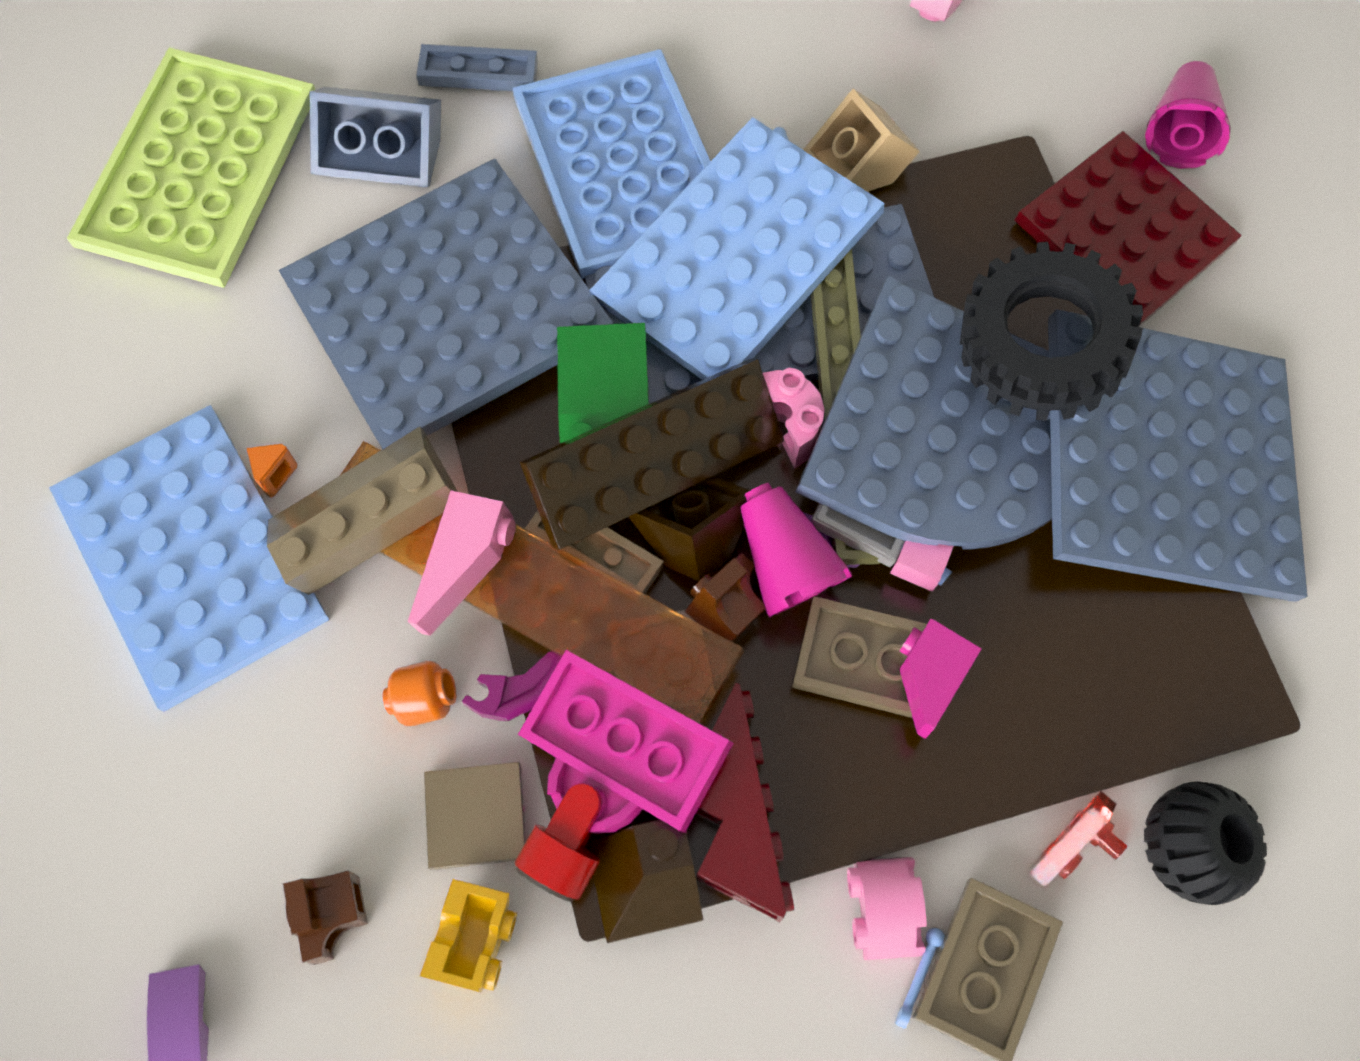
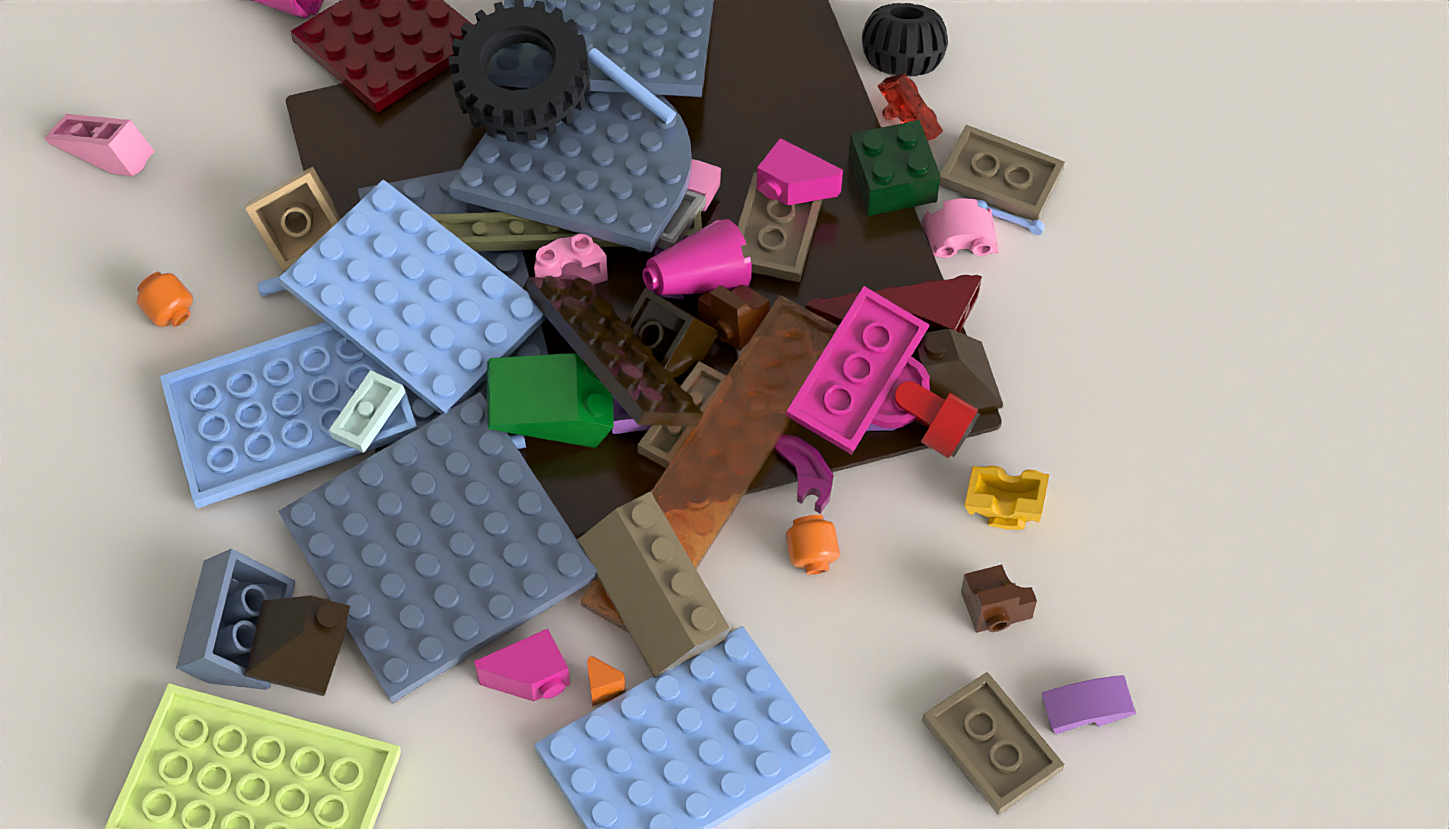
camera: 90 degrees left, 10 degrees down
(140, 898) = (992, 743): none -> dark tan plate
(292, 395) = (526, 668): none -> dark pink slope
(342, 184) = (297, 642): none -> dark brown slope
(462, 554) = (697, 495): bright pink slope -> none
(474, 815) = (909, 505): dark tan tile -> none
(475, 67) = (160, 538): sand blue plate -> none
(591, 216) = (367, 411): none -> light aqua plate
(755, 45) = (164, 299): none -> orange head
(970, 810) = (894, 167): none -> dark green brick
(1048, 464) = (631, 86): none -> light blue bar

